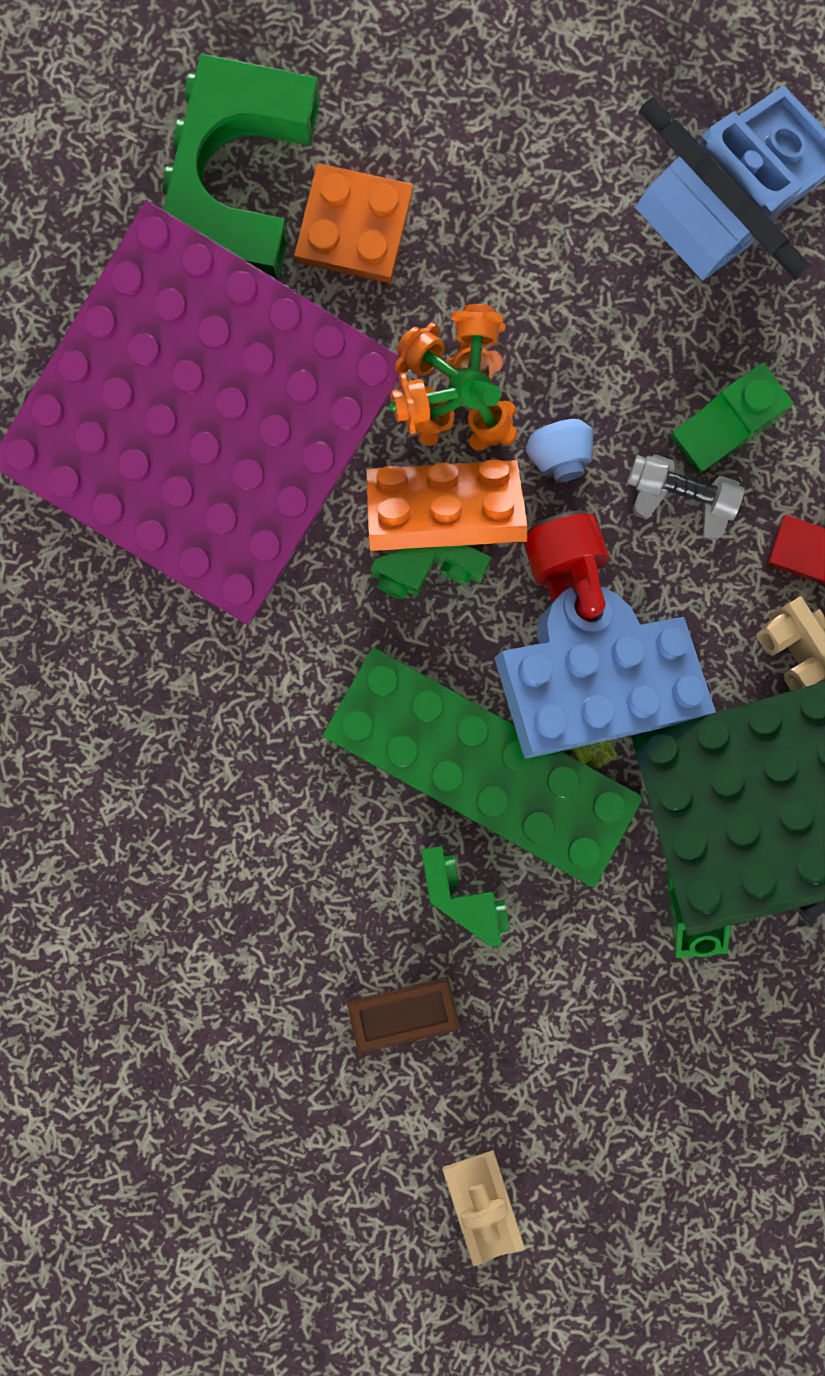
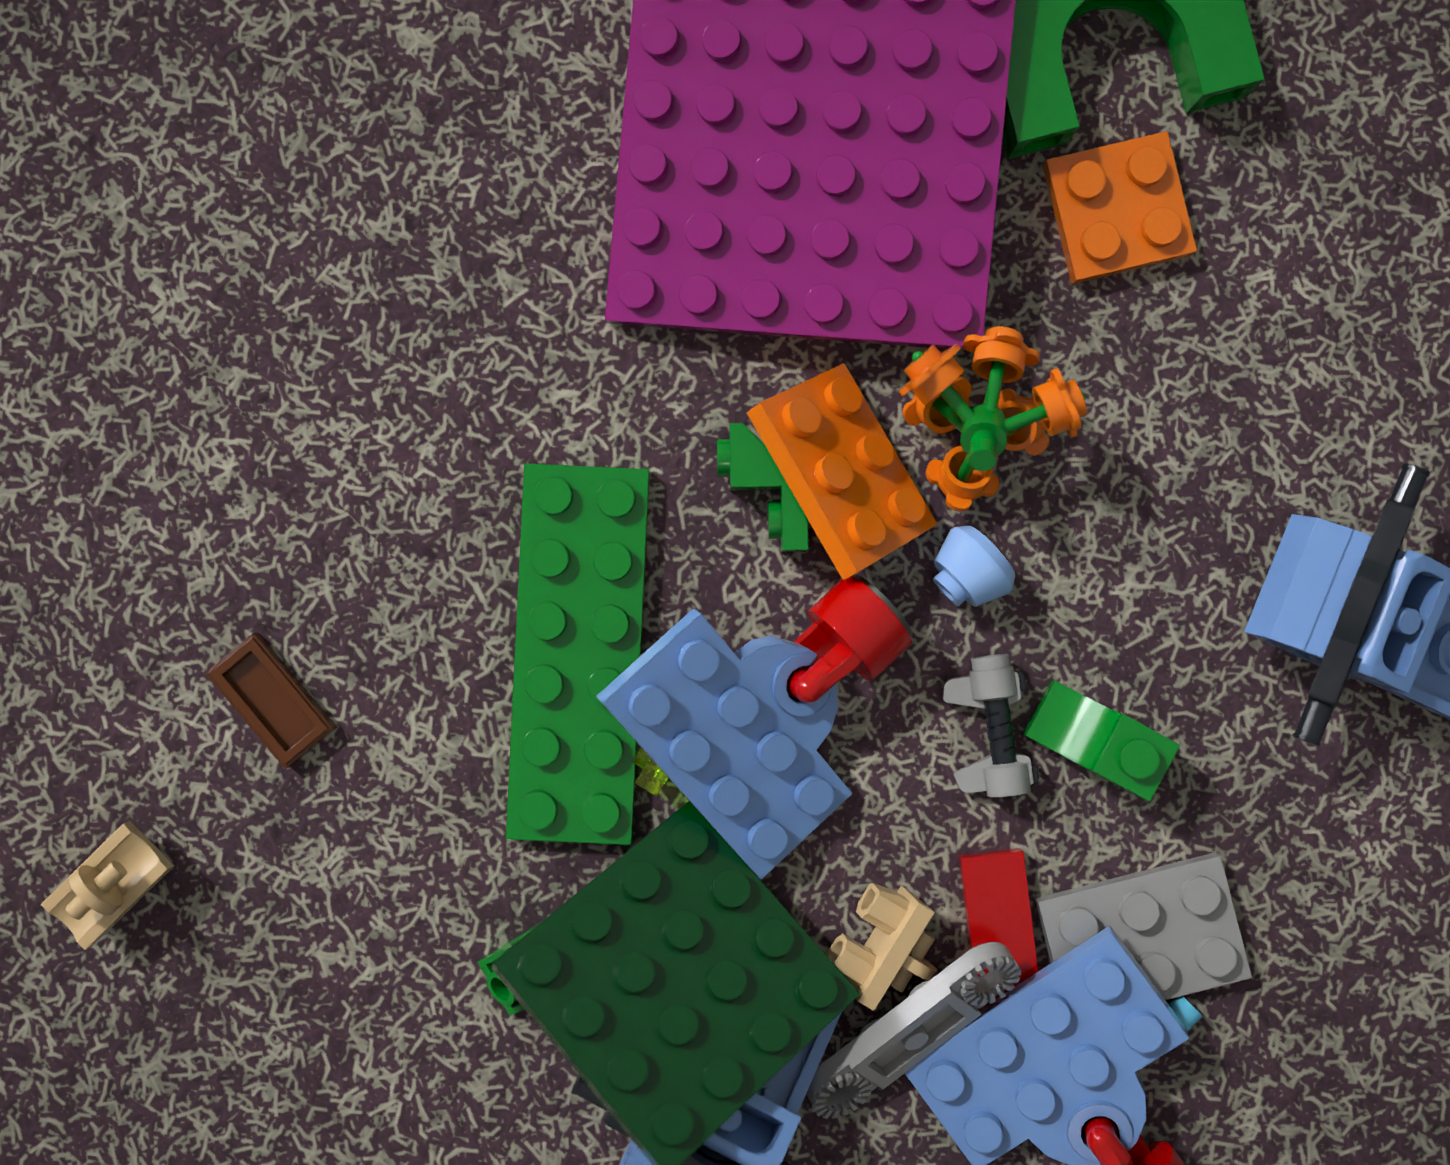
camera: 55 degrees right, 5 degrees up
(473, 911) = (413, 717): green slope -> none

